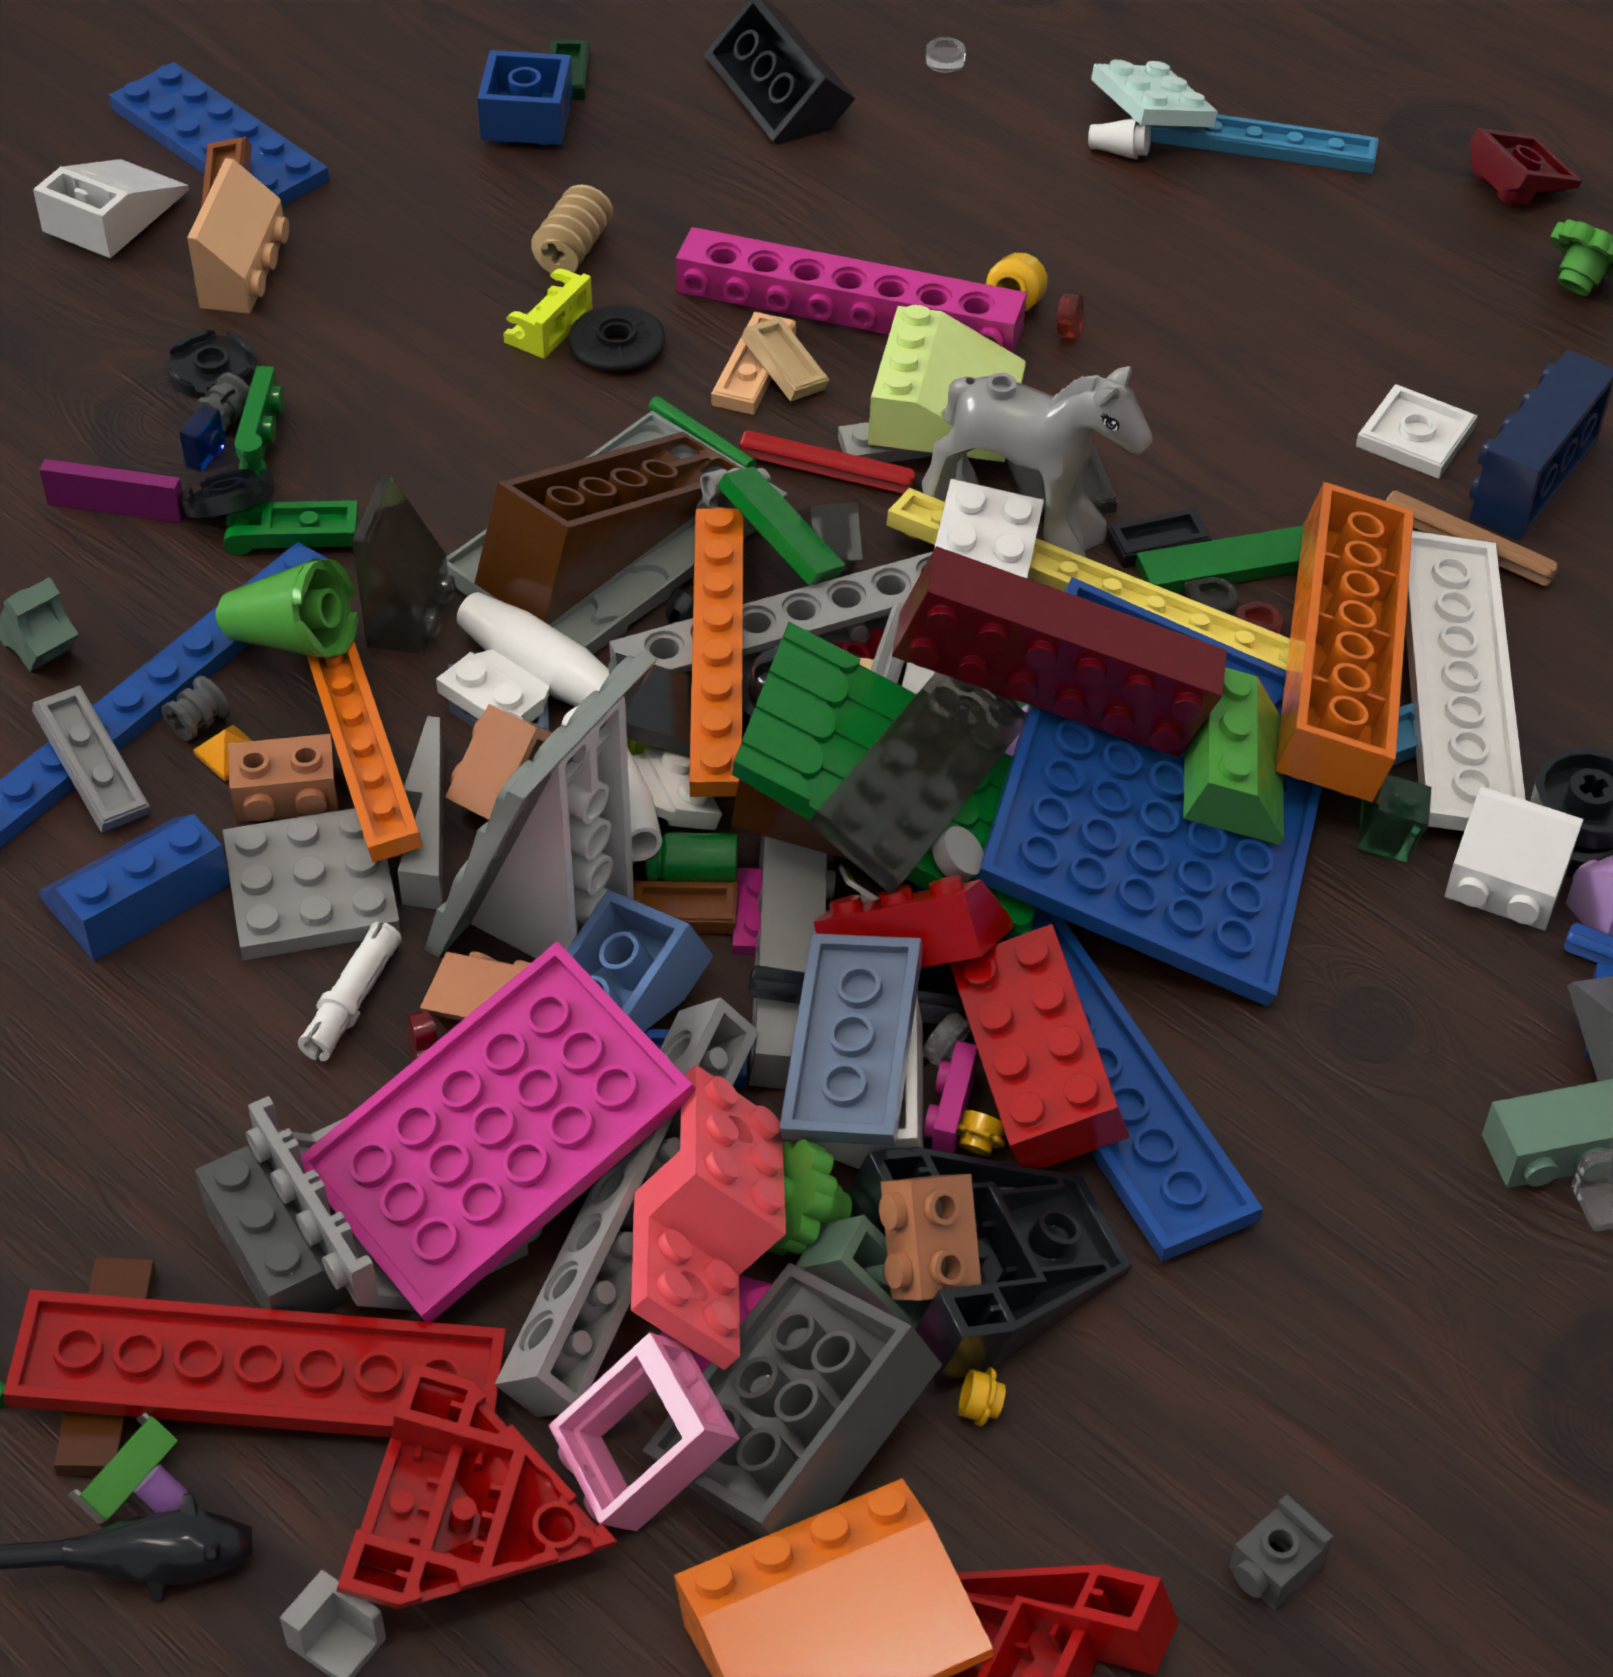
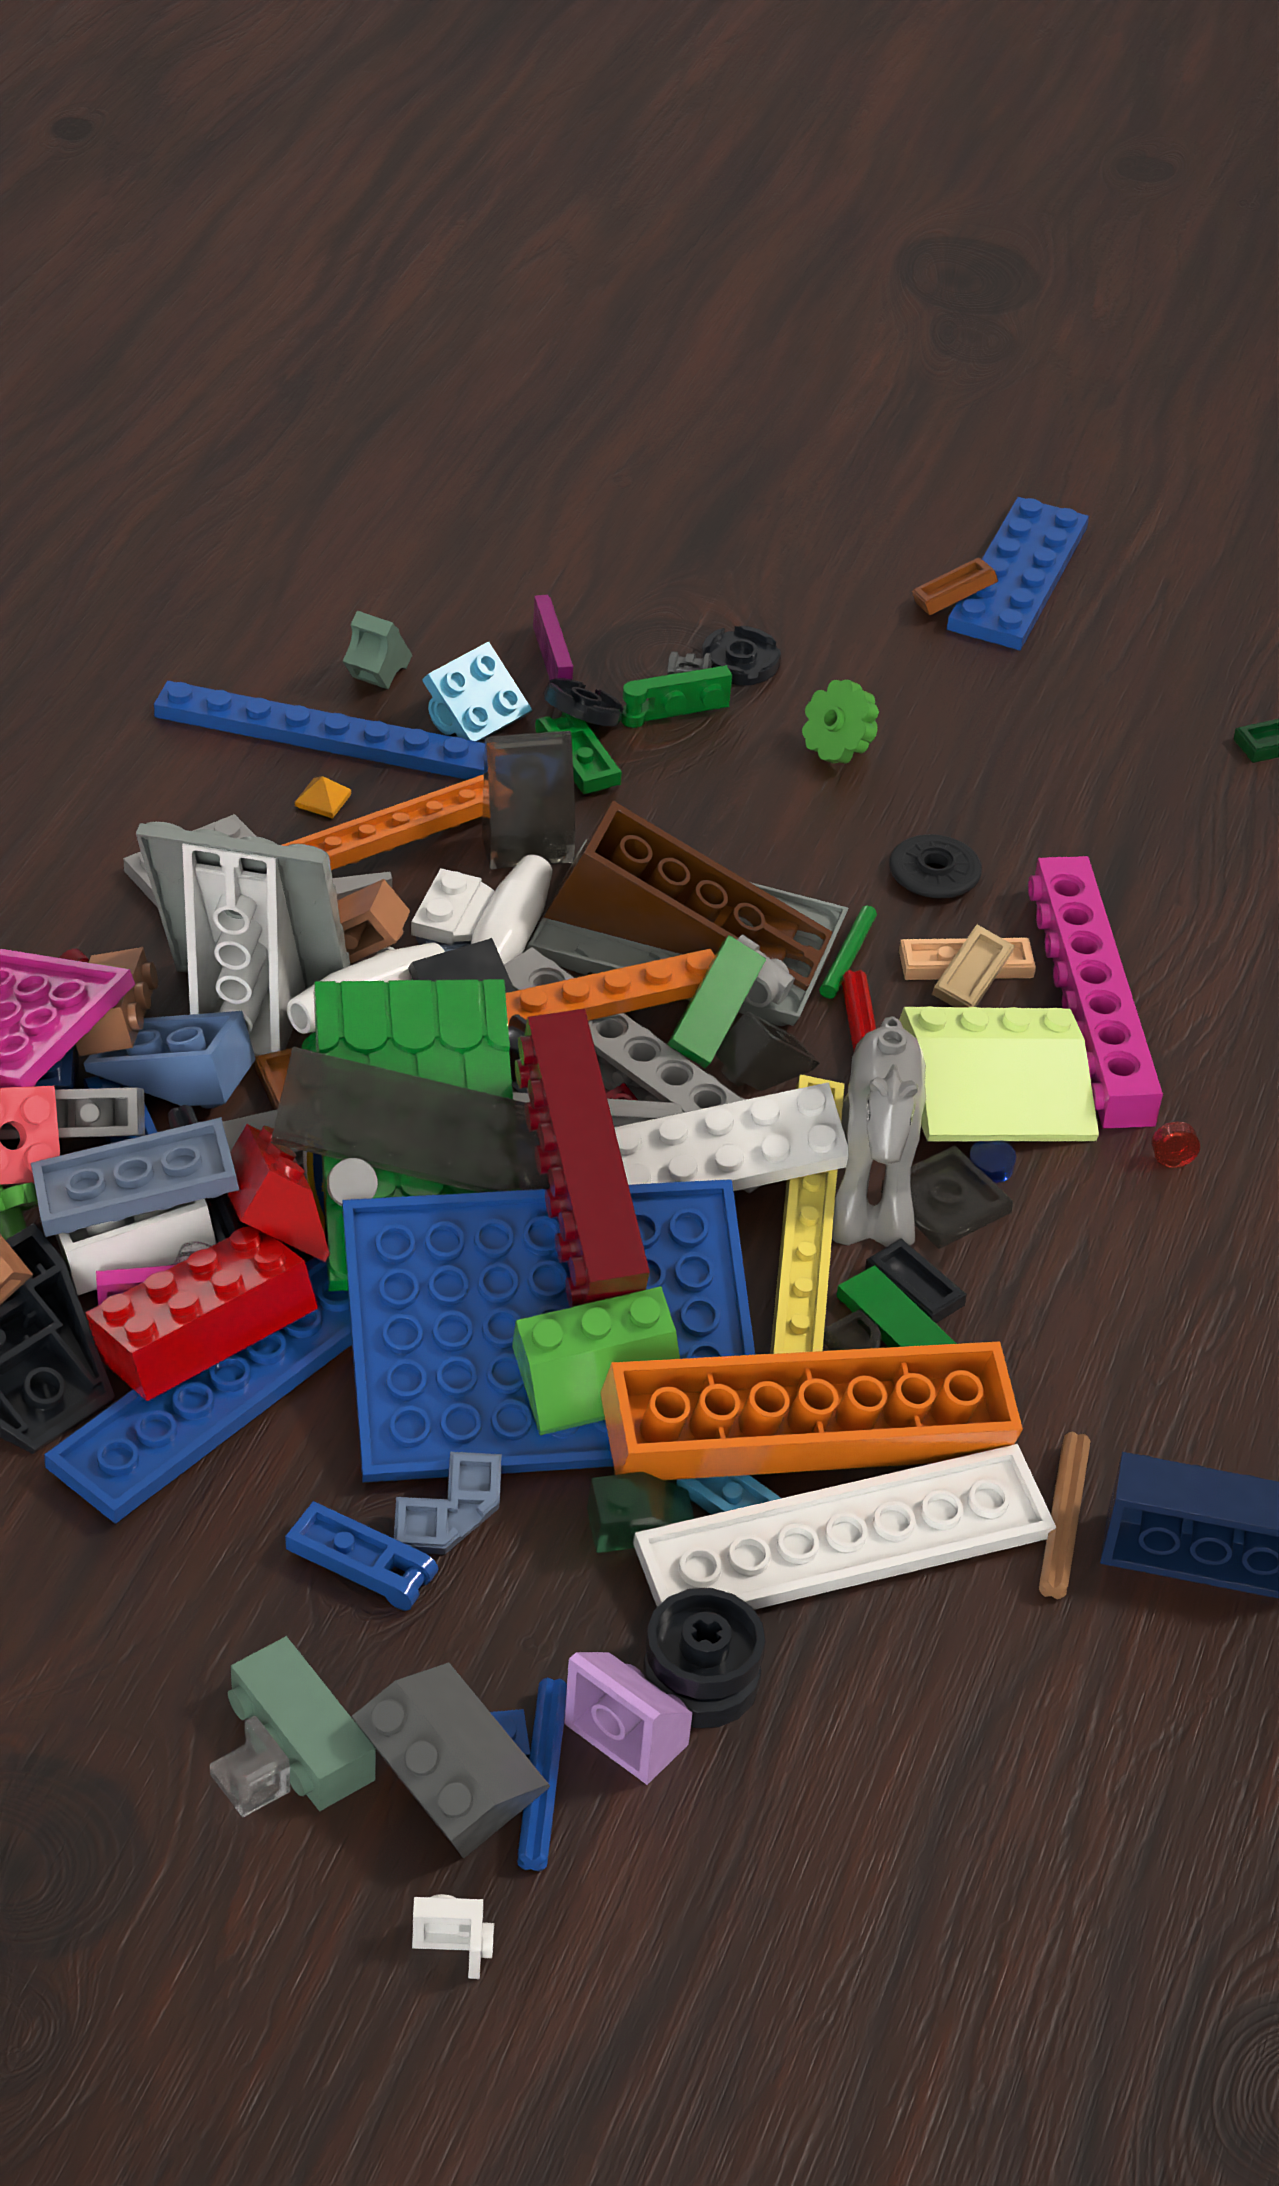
camera: 65 degrees right, 5 degrees down
(90, 758) = (261, 723): light grey tile -> none
(103, 203) = (882, 534): white slope -> none
(139, 885) = (154, 788): blue slope -> none
(164, 572) = (474, 695): none -> plate
(196, 709) = (347, 761): dark grey bush -> none
(202, 438) = (640, 665): clear blue plate -> none
(236, 240) = (874, 607): light nougat slope -> none
(282, 781) = (291, 813): nougat brick -> none
(294, 610) = (445, 766): bright green cone -> none
(340, 1006) = (102, 926): white pin -> none
(397, 294) = (840, 721): none -> bright green plant
(525, 97) = (1194, 714): blue brick -> none
(553, 316) = (920, 817): neon yellow hinge -> none
(571, 228) = (1043, 792): tan piece -> none
(1020, 273) = (1191, 1093): yellow head -> none
(1327, 918) = (440, 1524): none -> sand blue tile
(1371, 1030) = (361, 1554): none -> blue plate
(1416, 431) = (1205, 1435): white tile -> none
(1513, 858) = (597, 1599): white slope -> none

